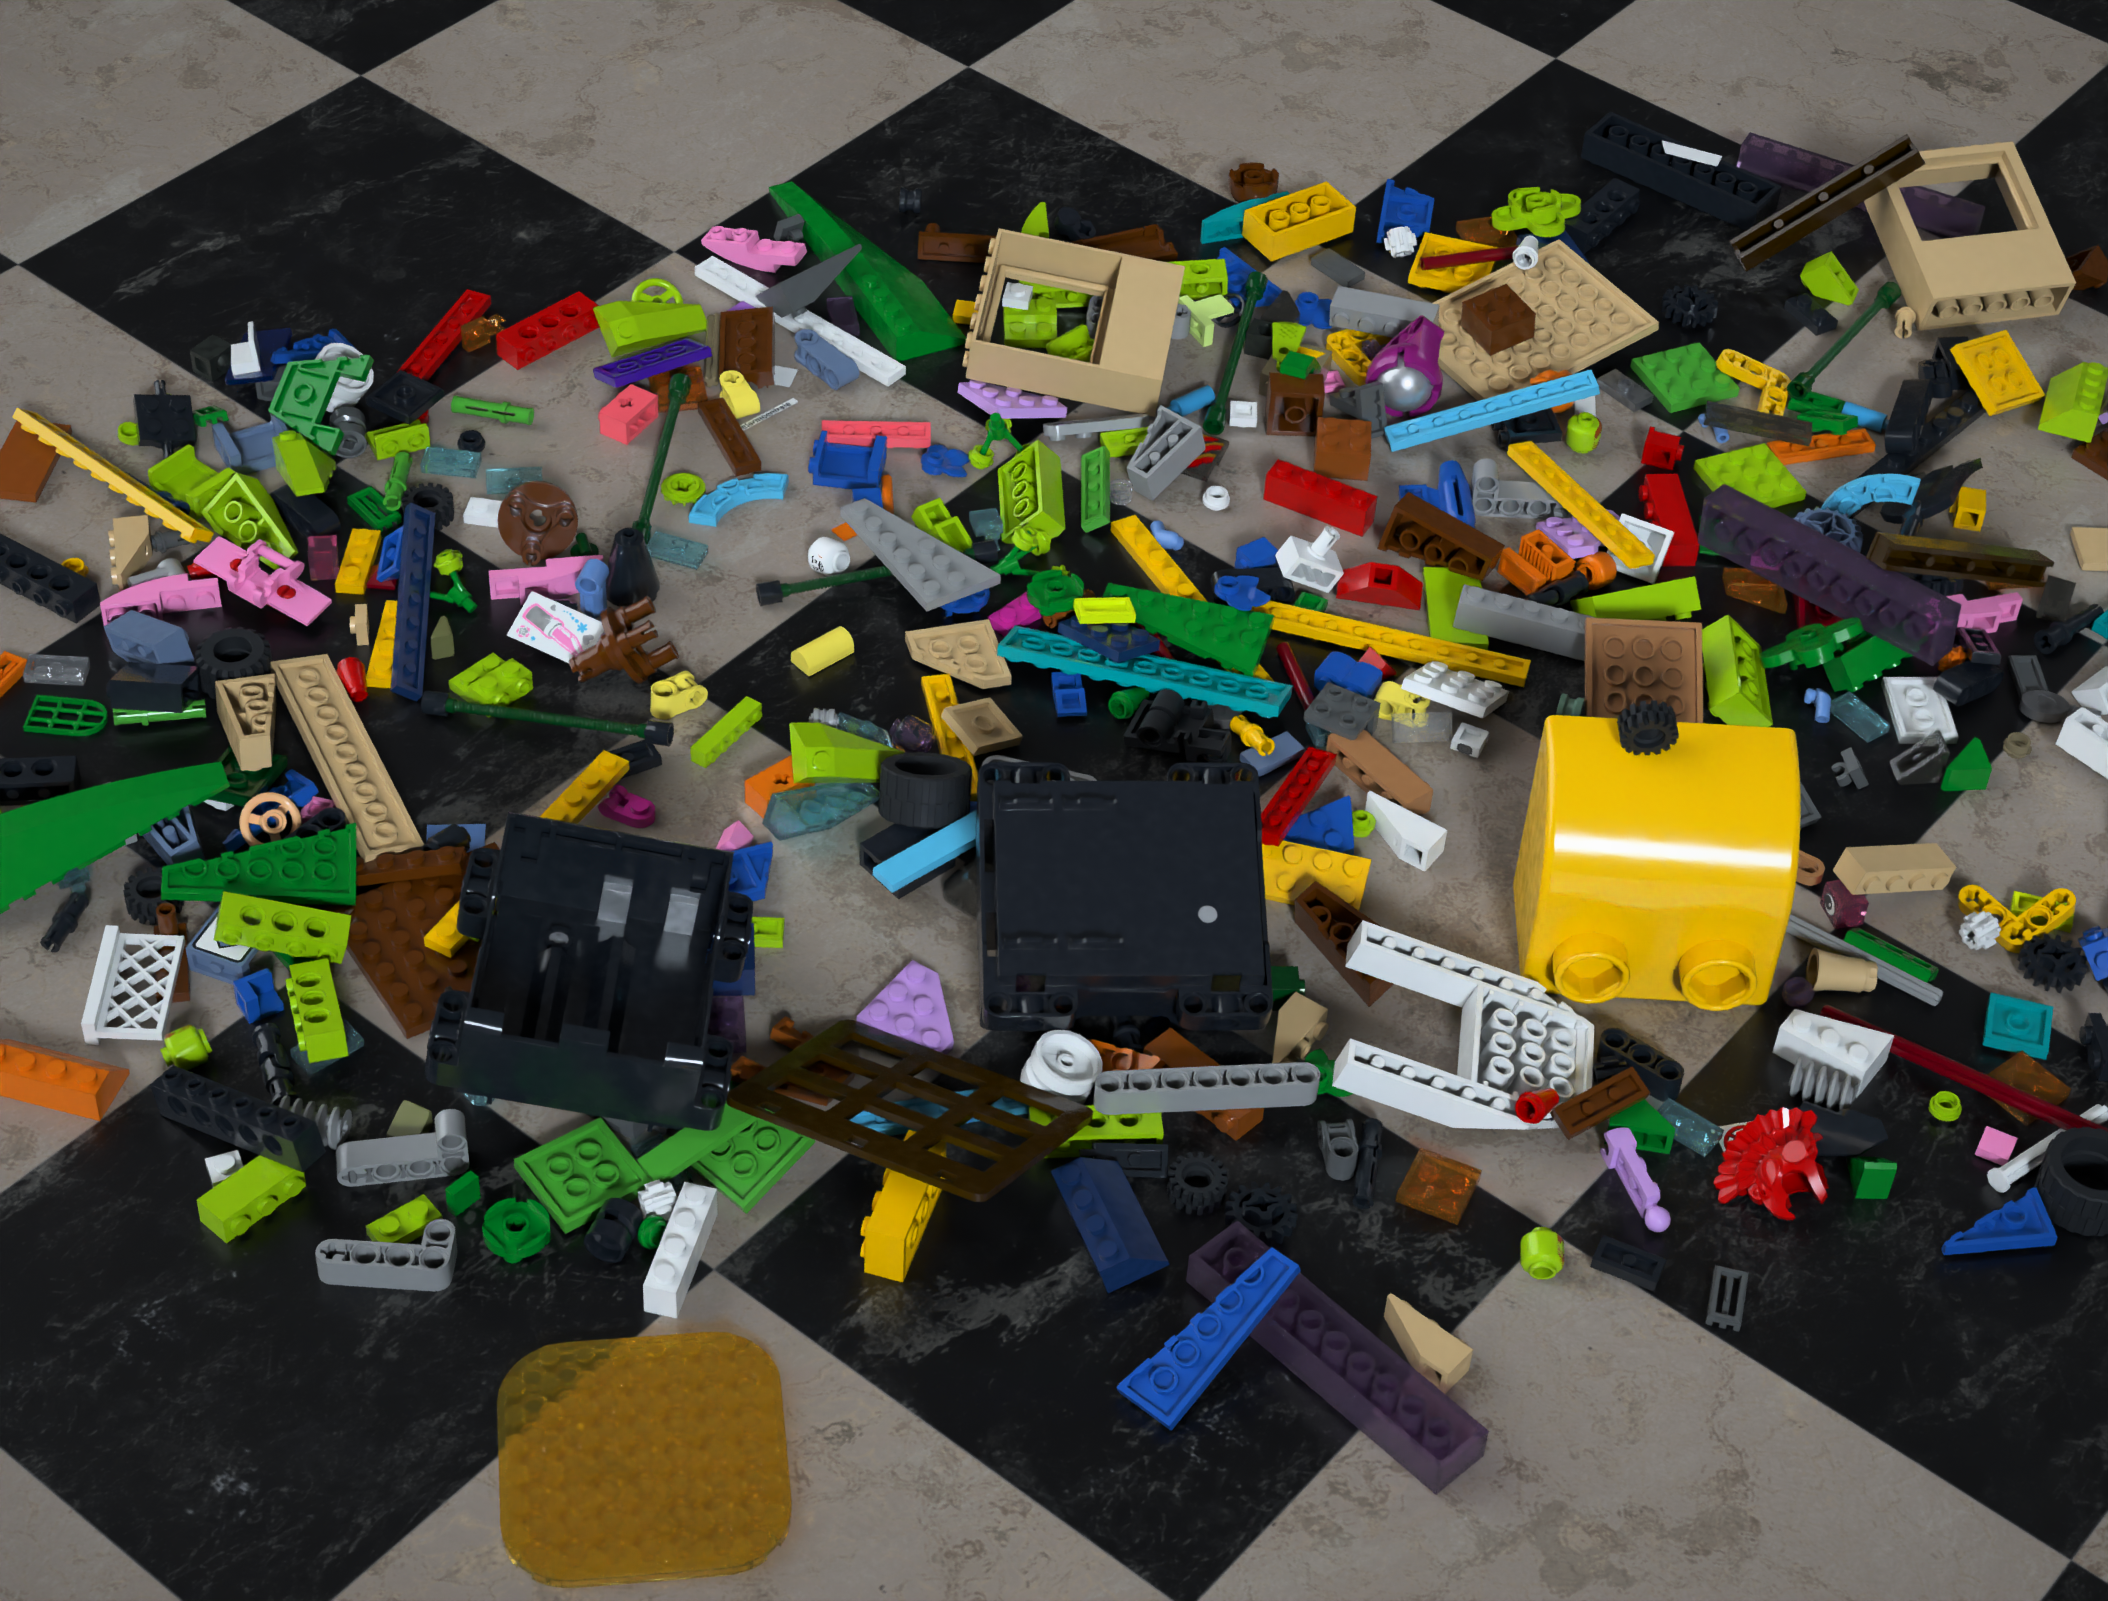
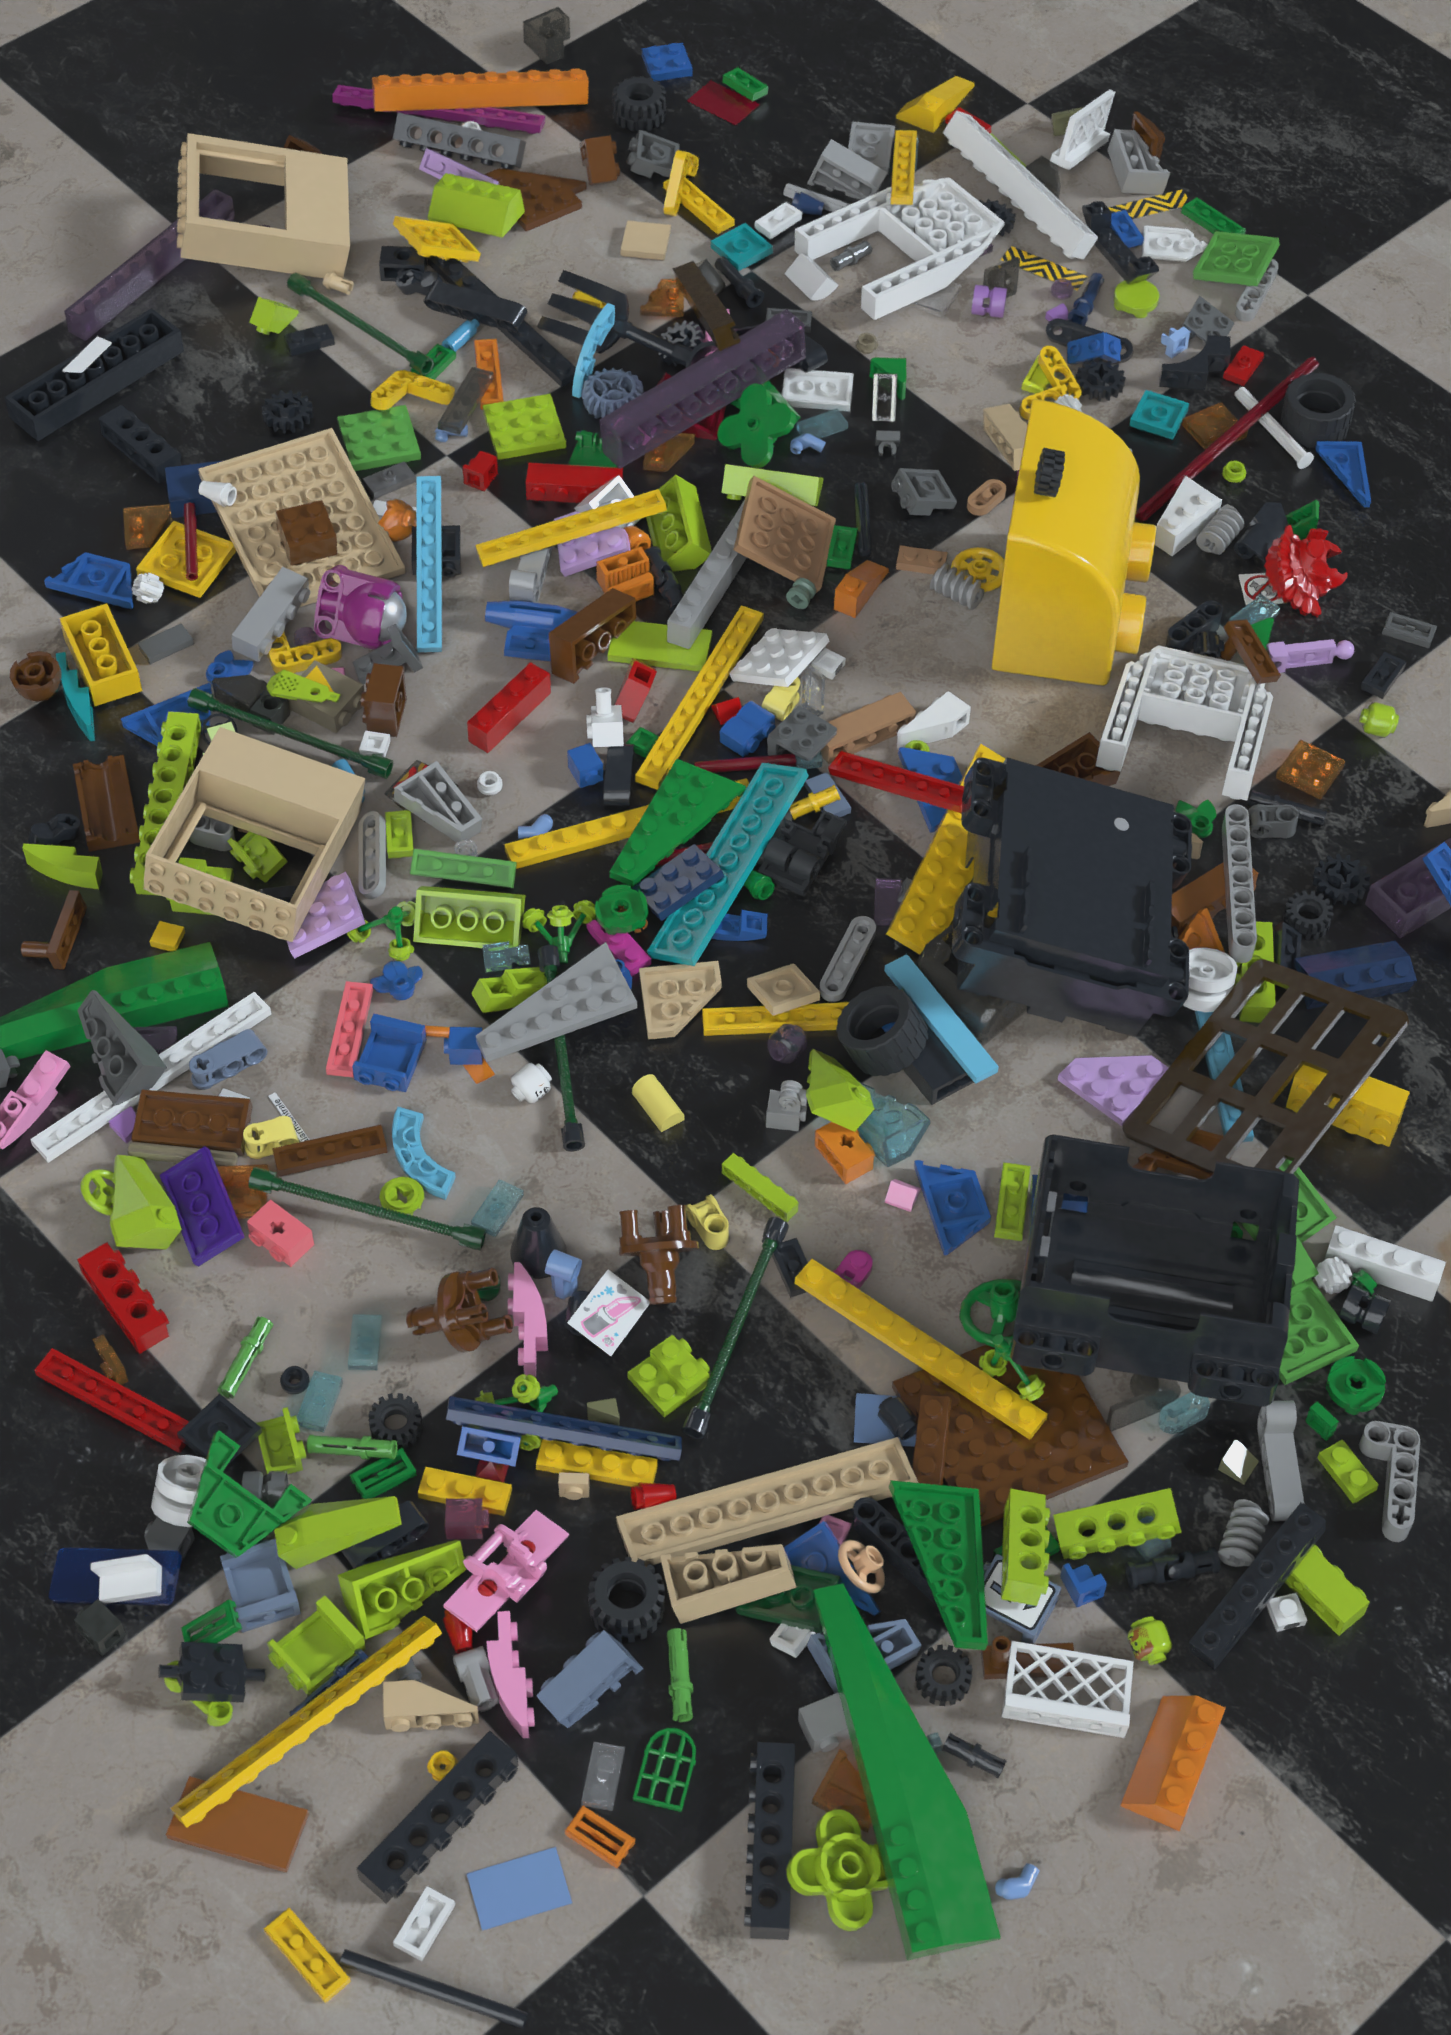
camera: 80 degrees left, 10 degrees up
(154, 687) = (668, 1667): black brick -> none
(308, 348) = (115, 1514): blue wing -> none
(482, 512) = (409, 1365): white plate -> none
(863, 729) = (784, 1072): clear light blue plate -> none
(1104, 610) = (657, 875): neon yellow tile -> none
(1241, 592) = (643, 777): blue plate -> none
(1299, 365) = (354, 677): green slope -> none
(1342, 448) = (443, 680): dark orange brick -> none
(1535, 1105) = (1262, 684): red cone -> none
(1536, 210) = (137, 481): lime plant -> none
(1583, 432) = (455, 512): lime head -> none
(1826, 202) = (217, 276): dark brown tile -> none
(1834, 422) = (467, 357): green plate -> none
(1996, 1146) = (1270, 455): bright pink tile -> none
(2048, 706) = (826, 315): flat silver piece -> none

